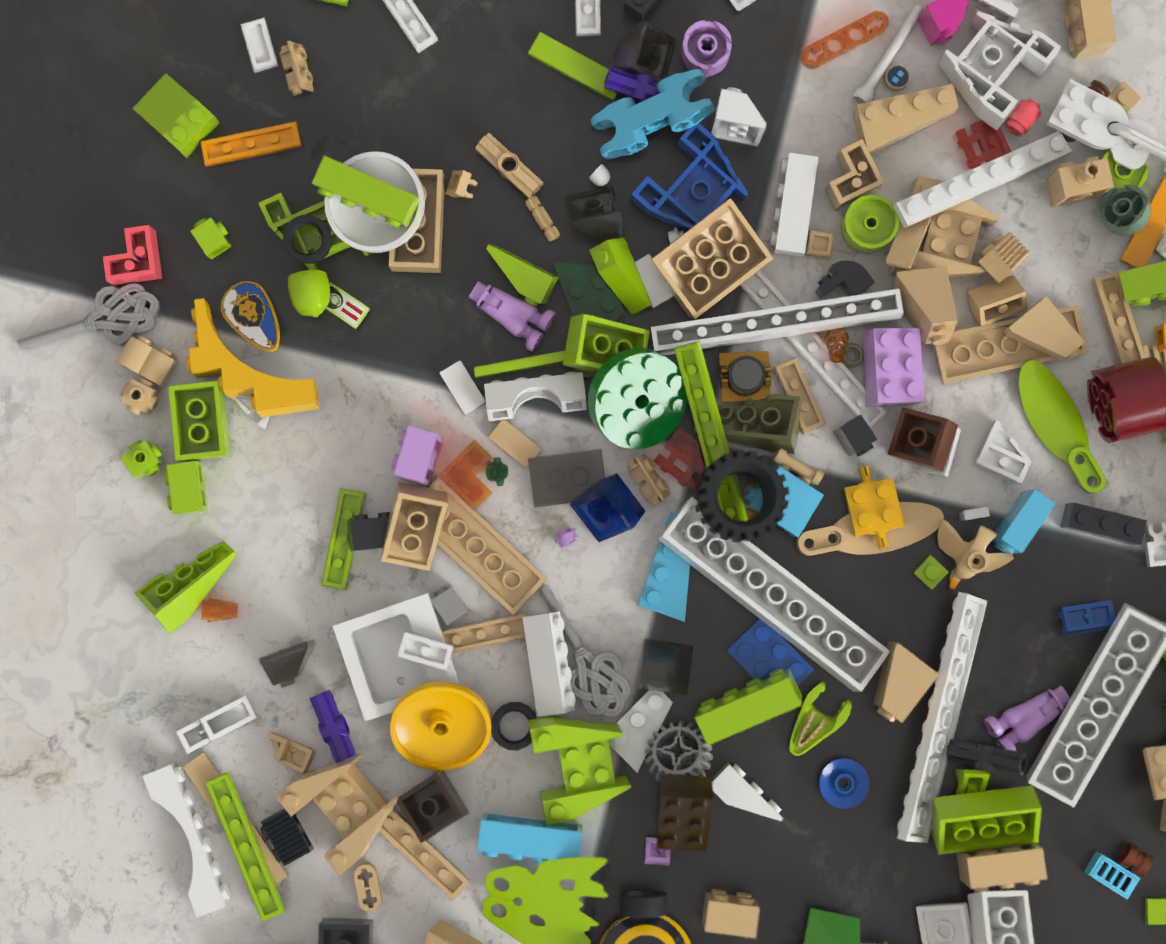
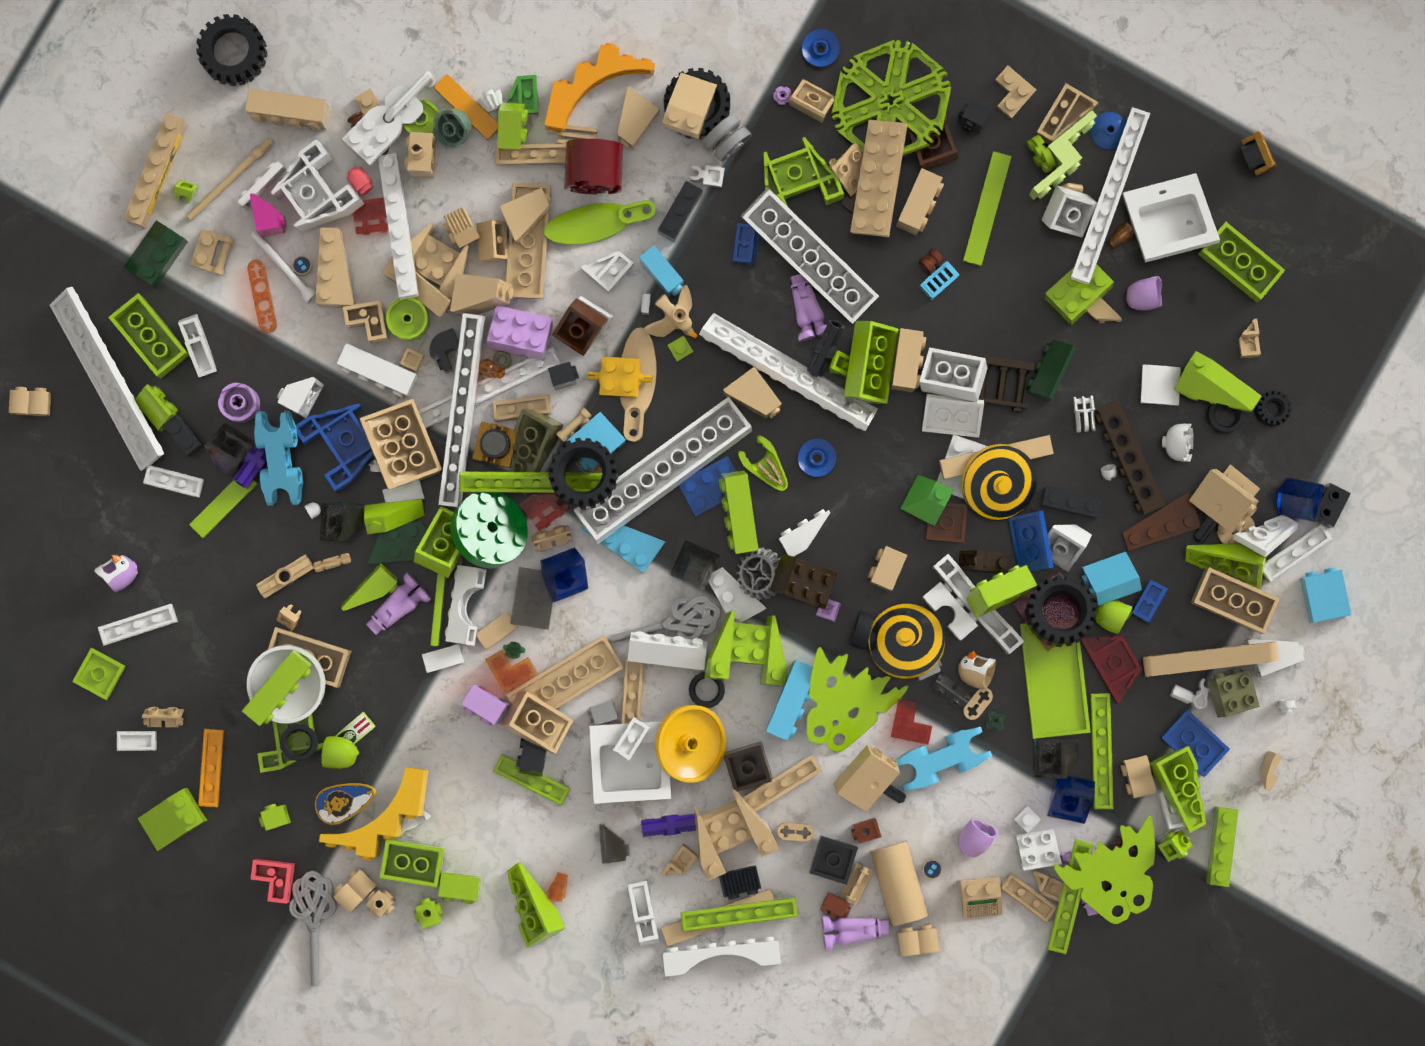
camera: 75 degrees left, 0 degrees up
(566, 537) = (577, 612): lavender plate -> none

